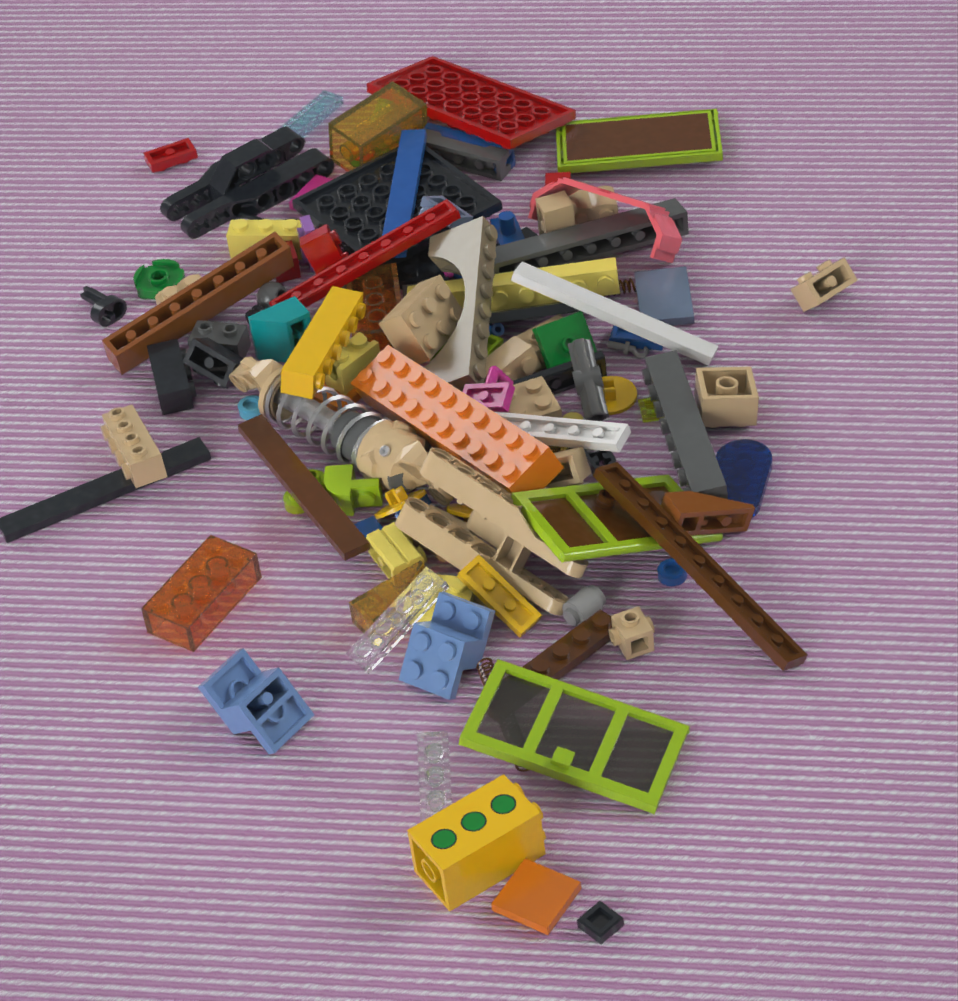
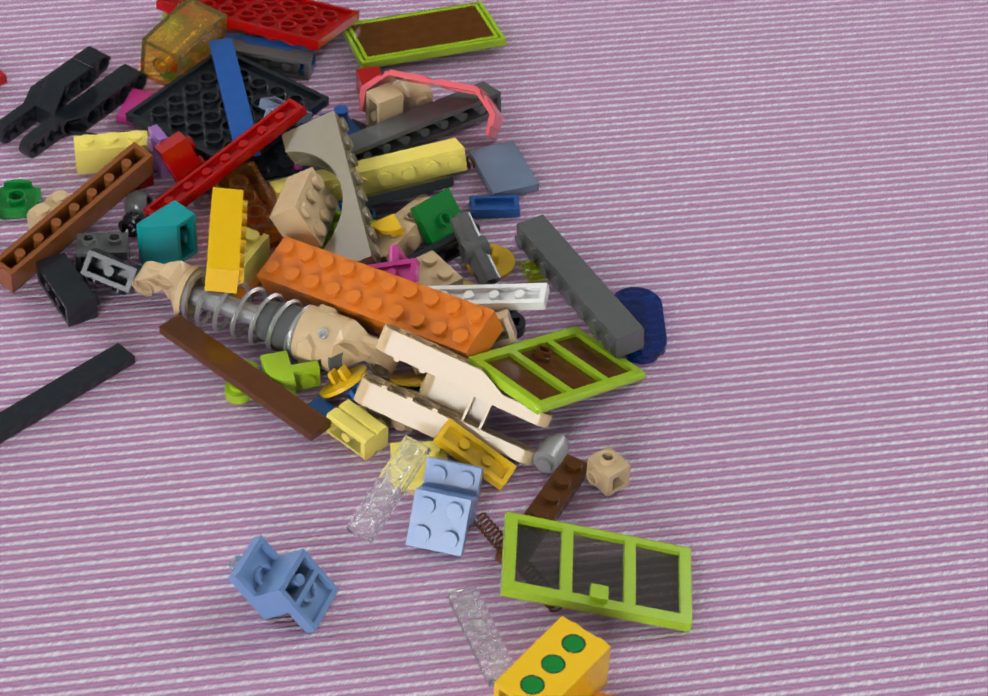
camera: 25 degrees left, 0 degrees up
(132, 446) = (60, 358): tan brick -> none
(201, 593) = (183, 490): clear orange brick -> none
(248, 407) = (157, 310): medium azure tile -> none
(314, 113) = (105, 32): clear light blue tile -> none
(372, 604) = (358, 479): clear yellow slope -> none
(503, 345) = (388, 225): none -> yellow tile
(614, 313) = (476, 187): white tile -> none
(628, 348) = (490, 218): light grey hand -> none
(671, 573) = (614, 412): blue tile -> none
(701, 566) = (648, 402): reddish brown plate -> none
(706, 513) = (628, 357): dark orange slope -> none
(726, 396) = (604, 249): tan brick -> none
(824, 284) = (644, 144): tan brick -> none

